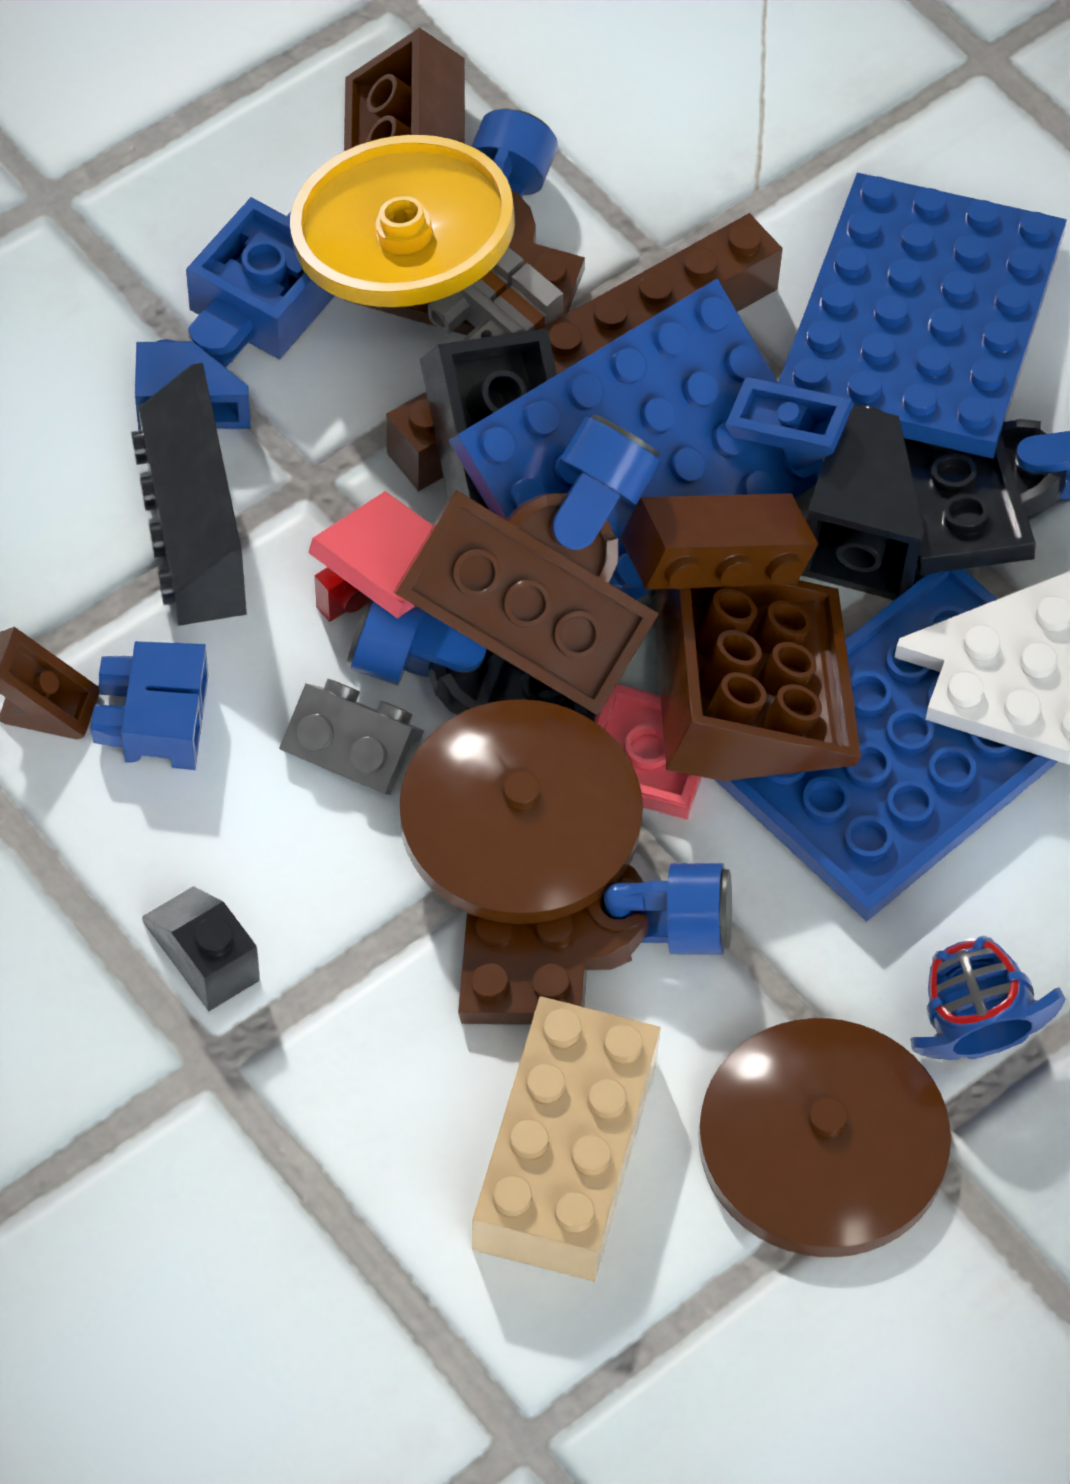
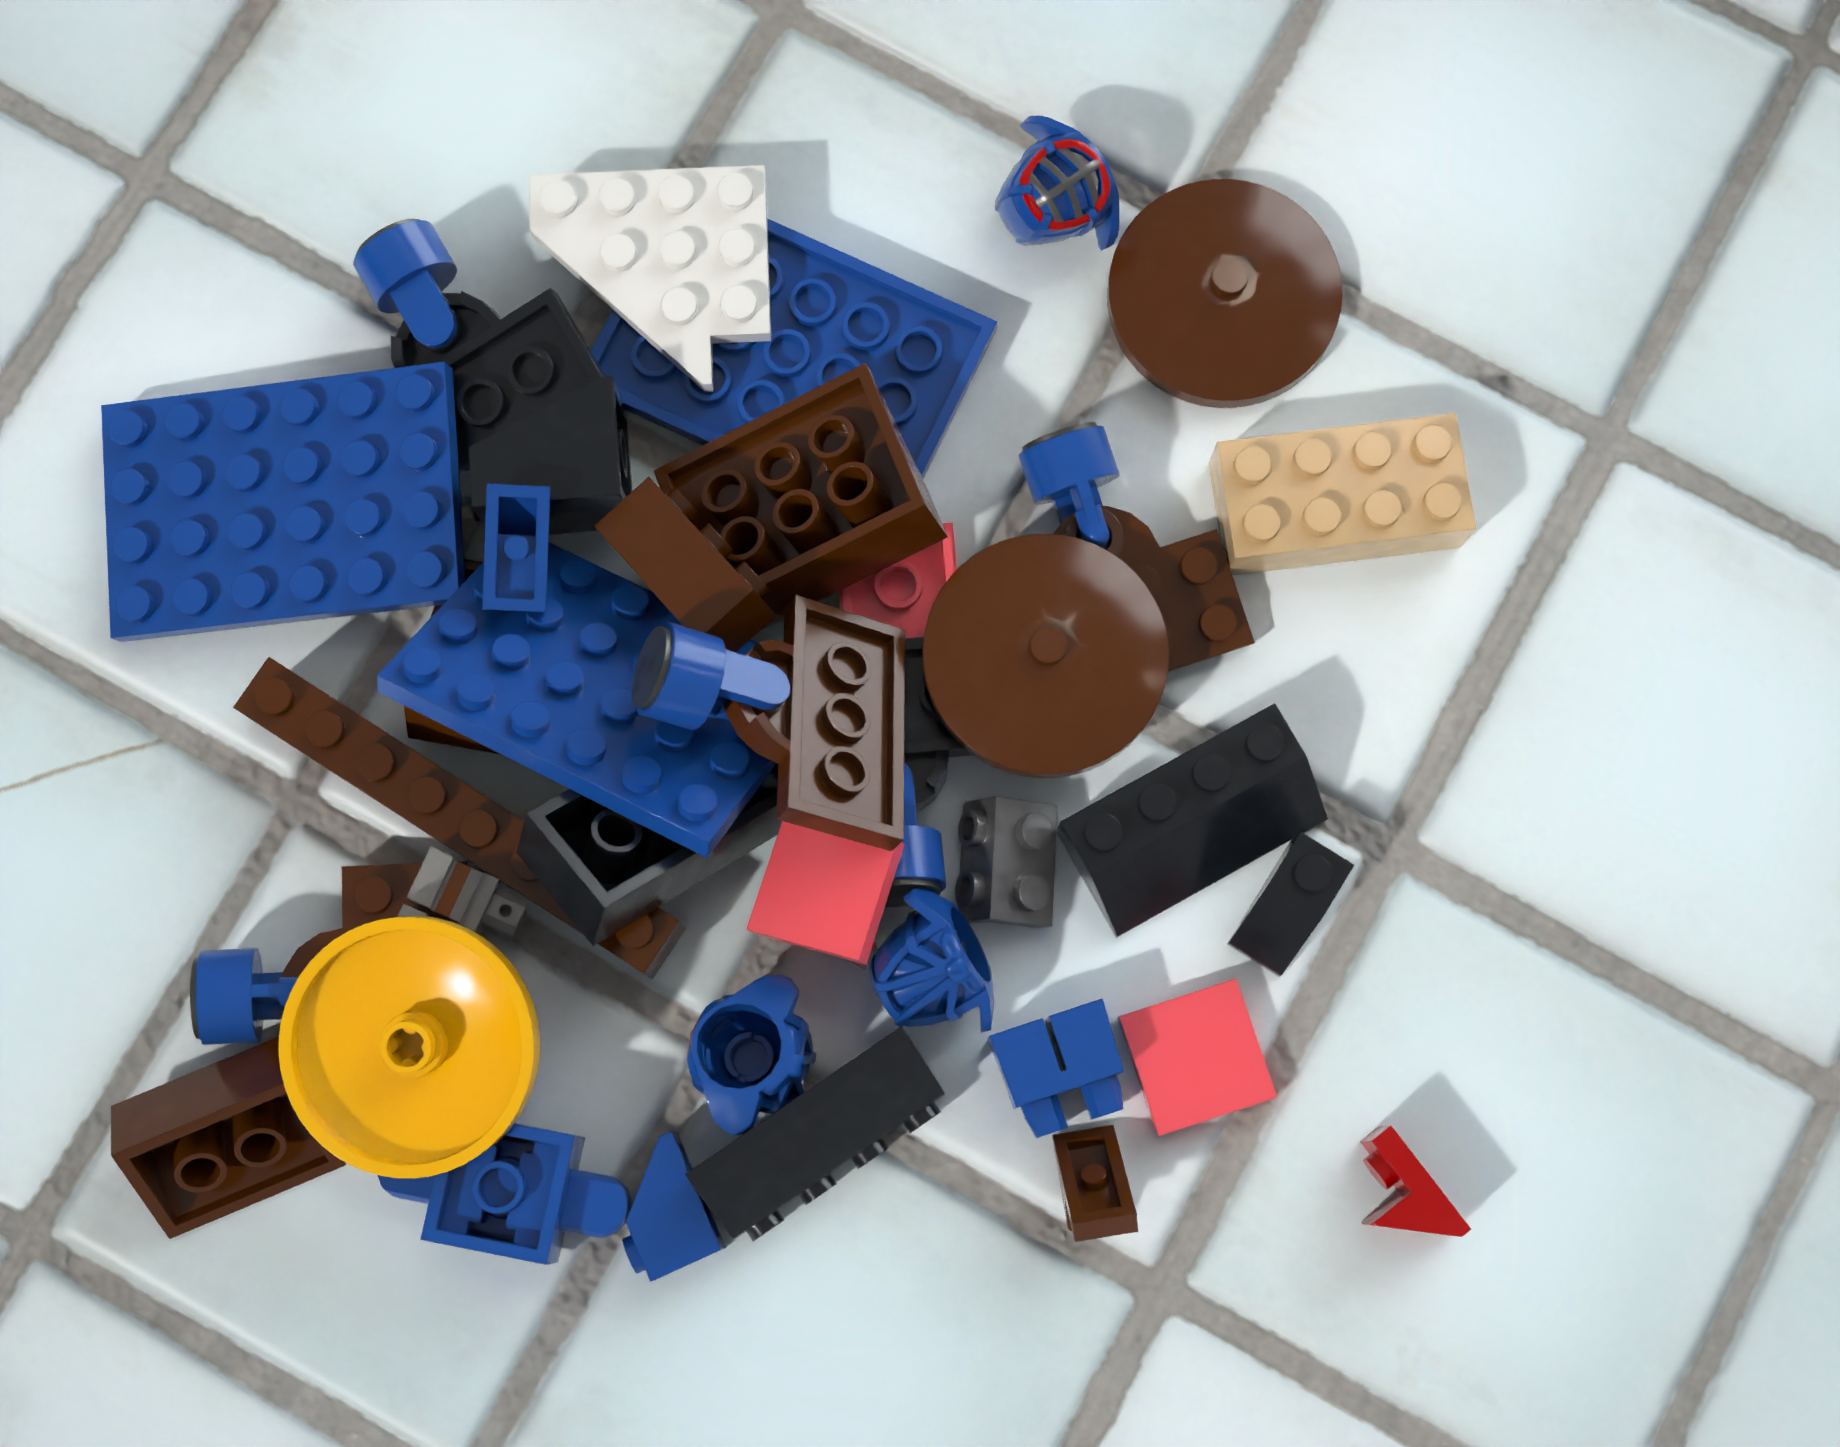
camera: 110 degrees left, 20 degrees up
(106, 820) = (1196, 1057): none -> coral tile
(274, 483) = (750, 1052): none -> blue piece
(284, 607) = (925, 970): none -> blue piece
(316, 893) = (1194, 820): none -> black slope

